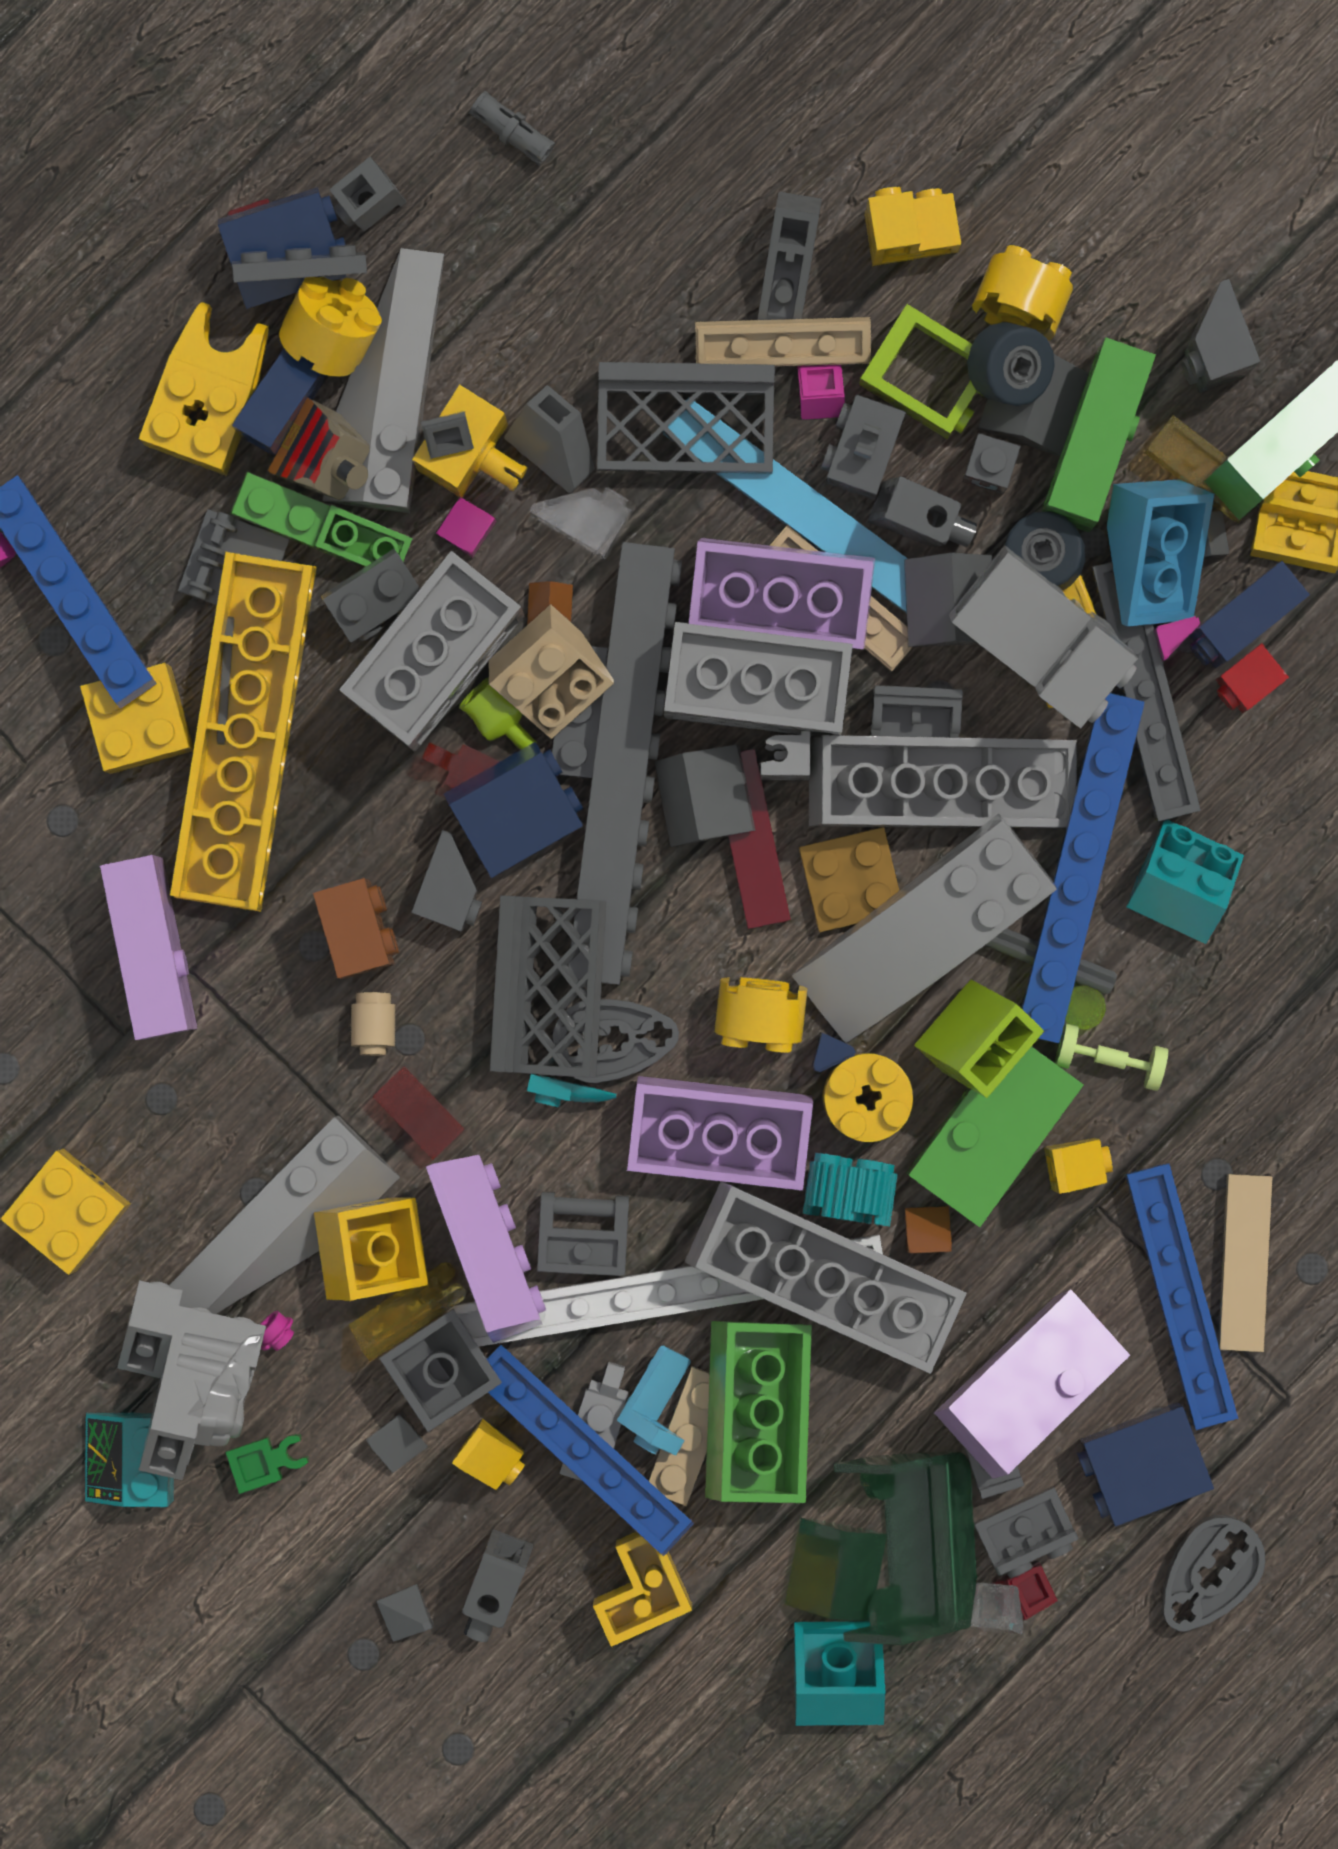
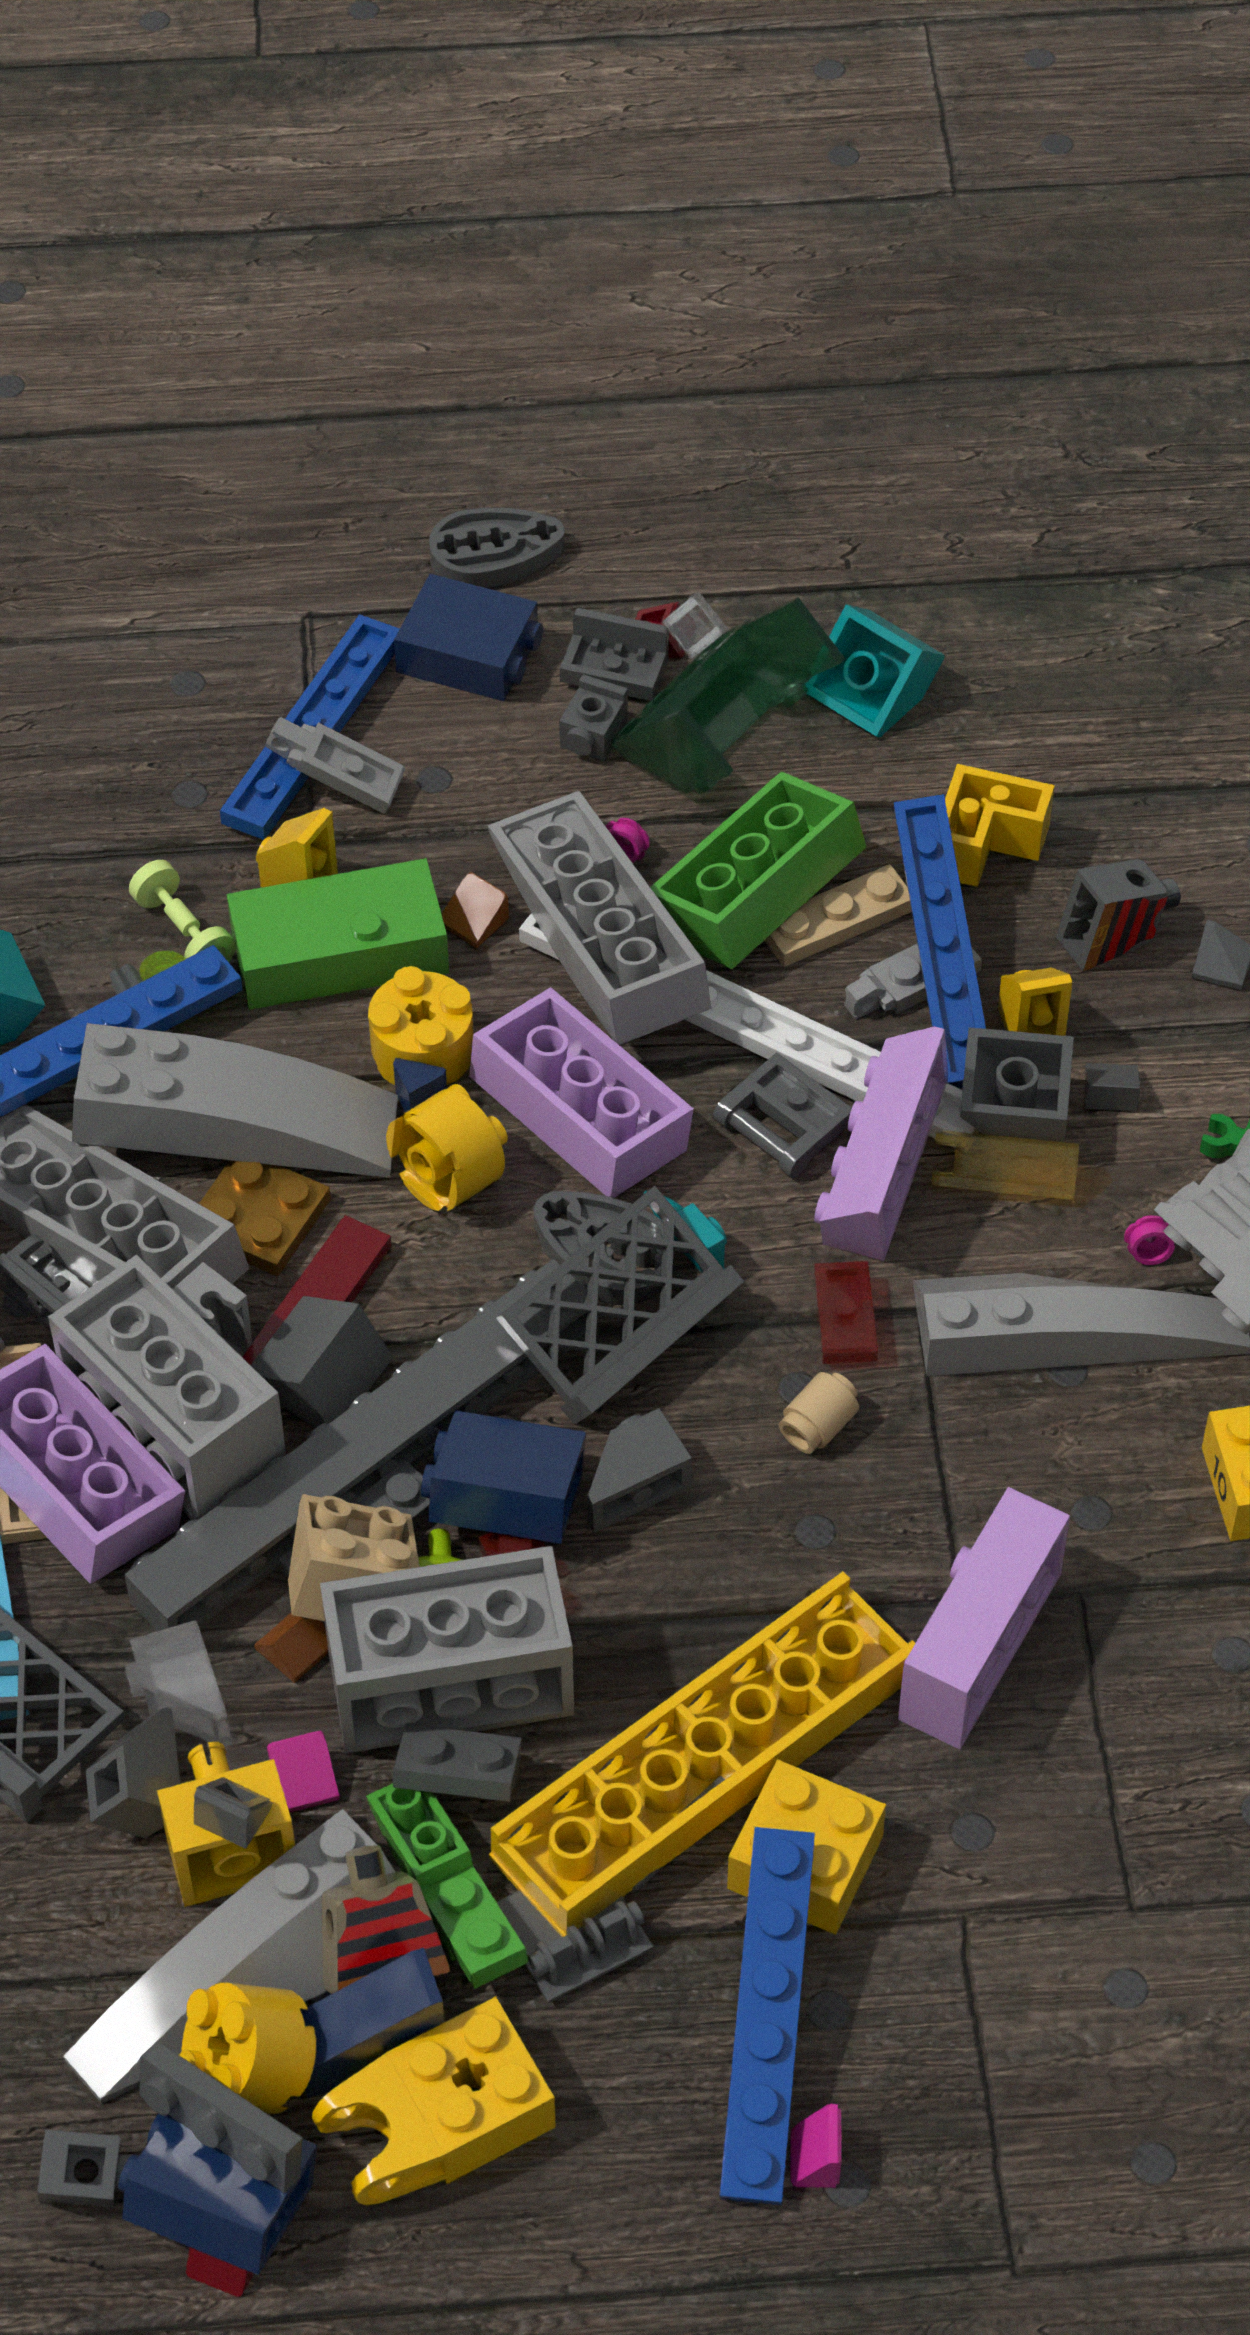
camera: 140 degrees left, 35 degrees down
(356, 928) = (759, 1483): dark orange brick -> none
(371, 1248) = (994, 1217): yellow brick -> none
(650, 1399) = (869, 923): medium azure bracket -> none
(835, 1569) = (809, 740): clear green slope -> none
(850, 1191) = (507, 962): teal brick -> none
(880, 1375) = (637, 837): none -> dark pink plate
(979, 1038) = (277, 981): lime brick -> none
(1032, 1384) = (501, 729): lavender brick -> none
(1123, 1269) = (338, 762): none -> light grey hinge
(1245, 1262) = (233, 718): tan tile -> none

